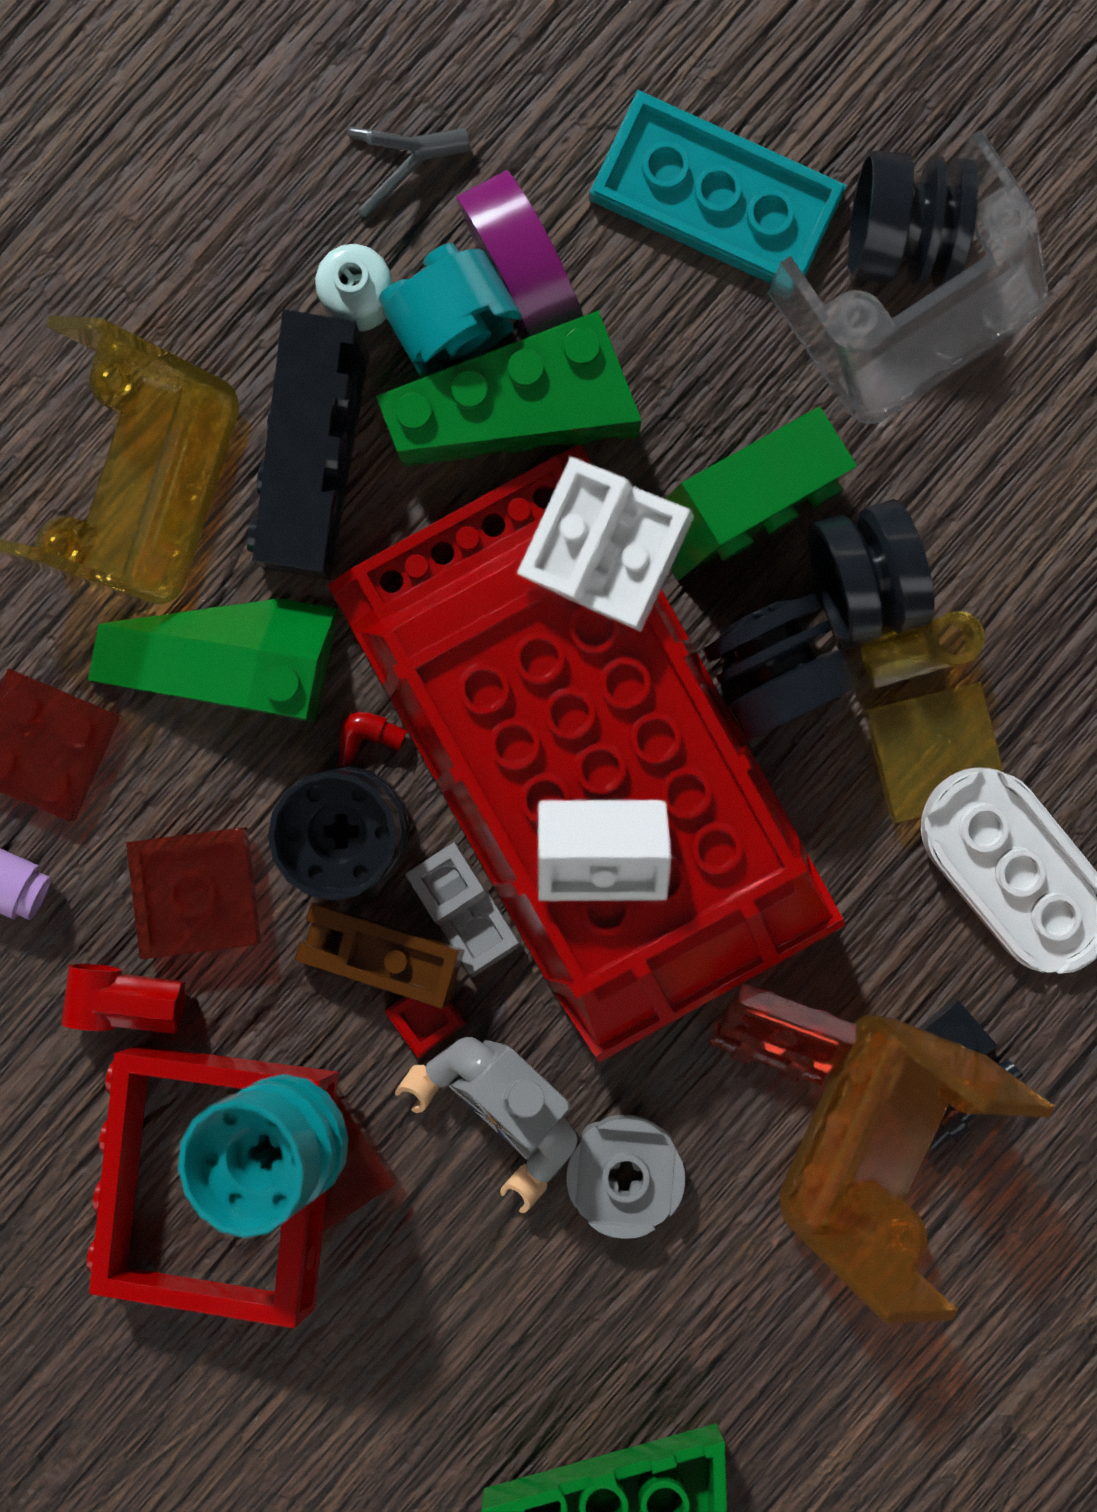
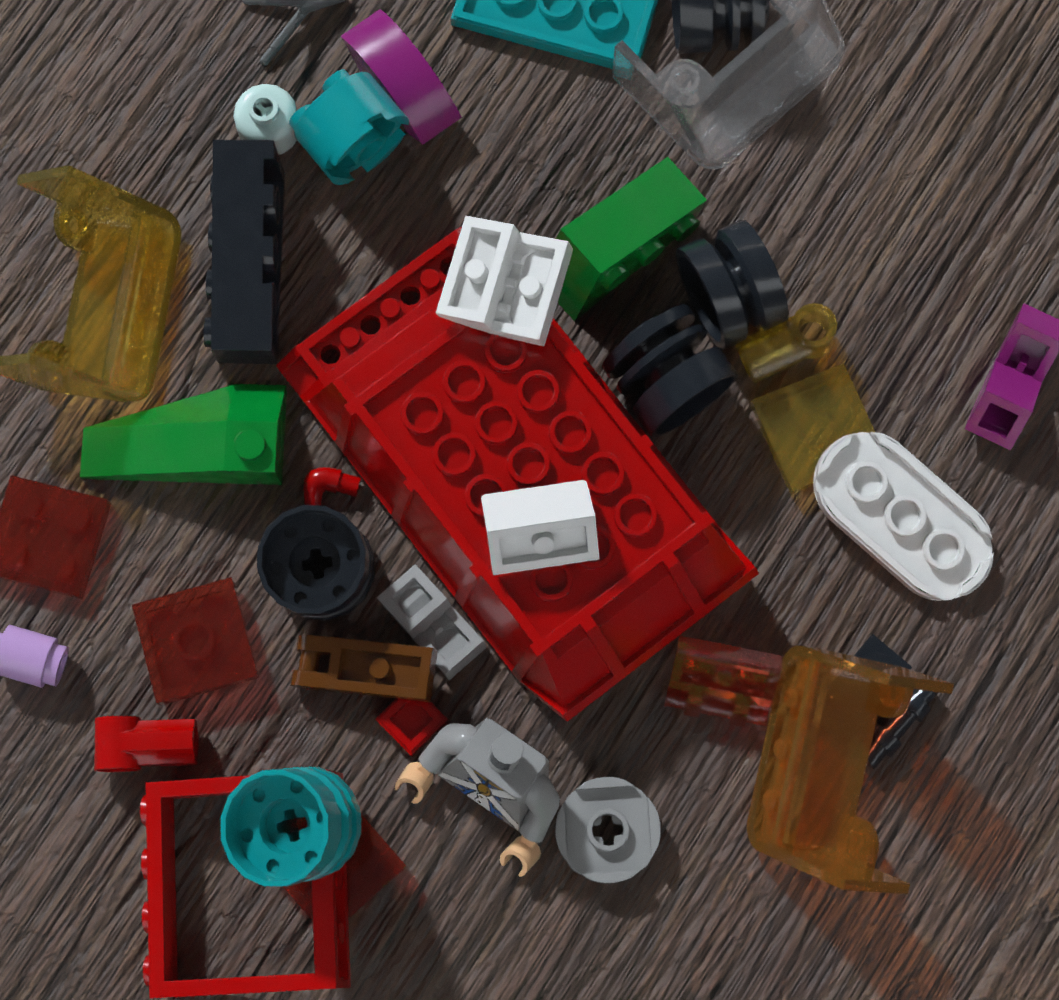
camera: 10 degrees left, 10 degrees down
(516, 398) = (413, 190): green wedge -> none

